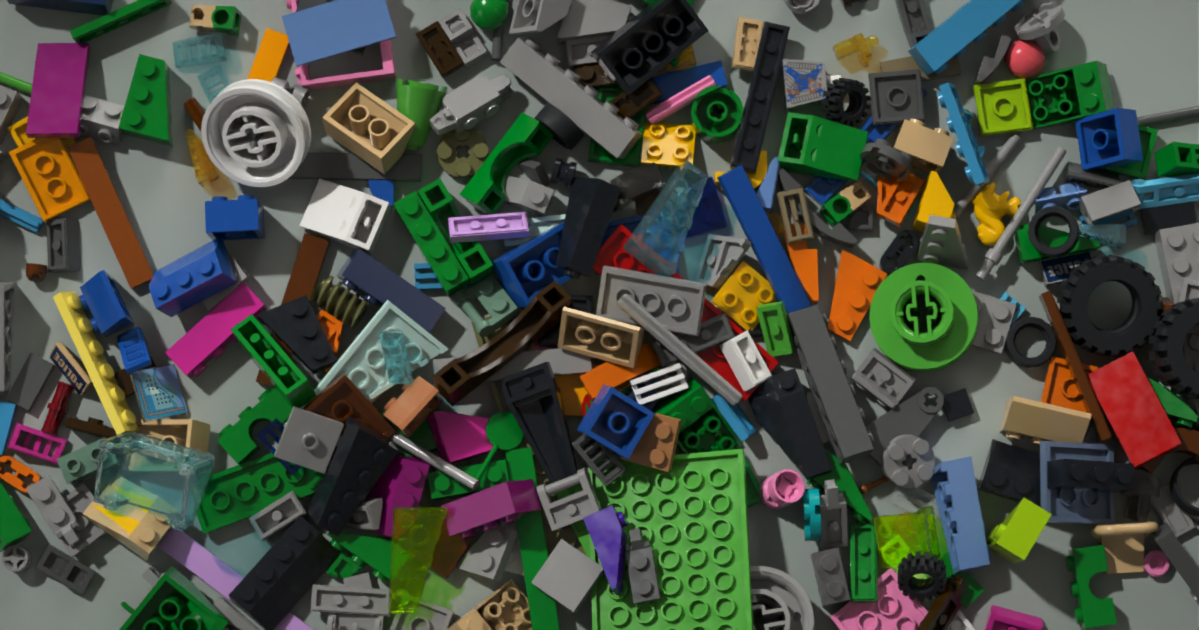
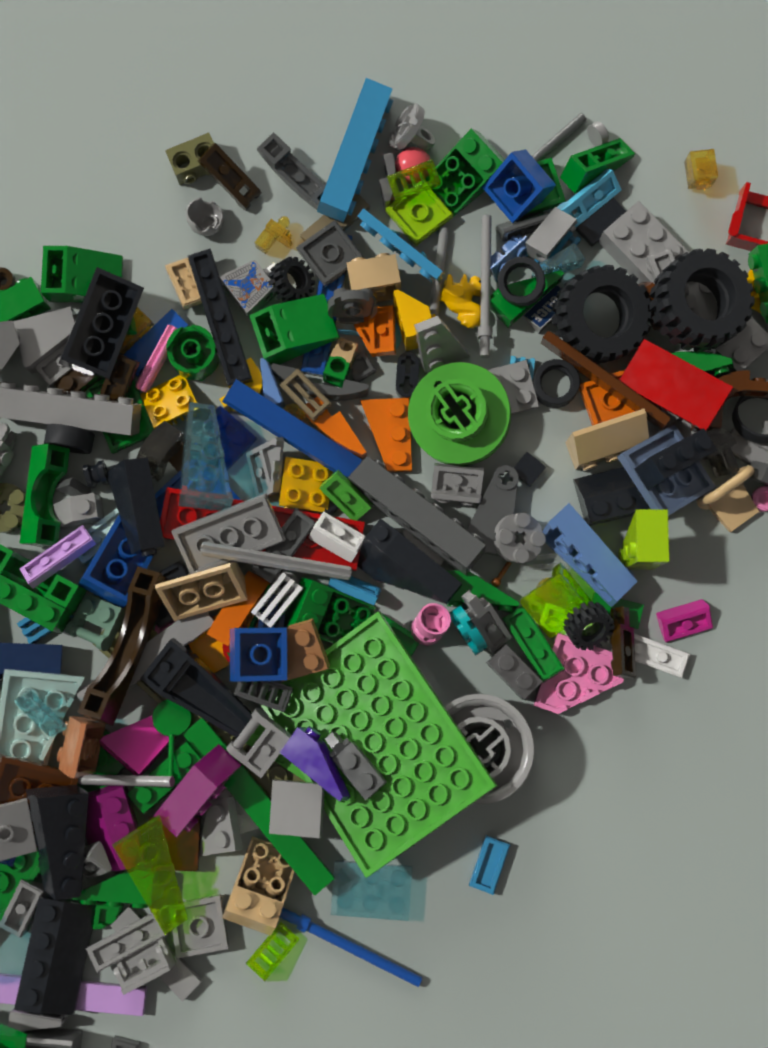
camera: 30 degrees left, 0 degrees up
(1002, 83) = (428, 165): none -> clear neon green slope
(1090, 610) = (710, 536): green arch -> none

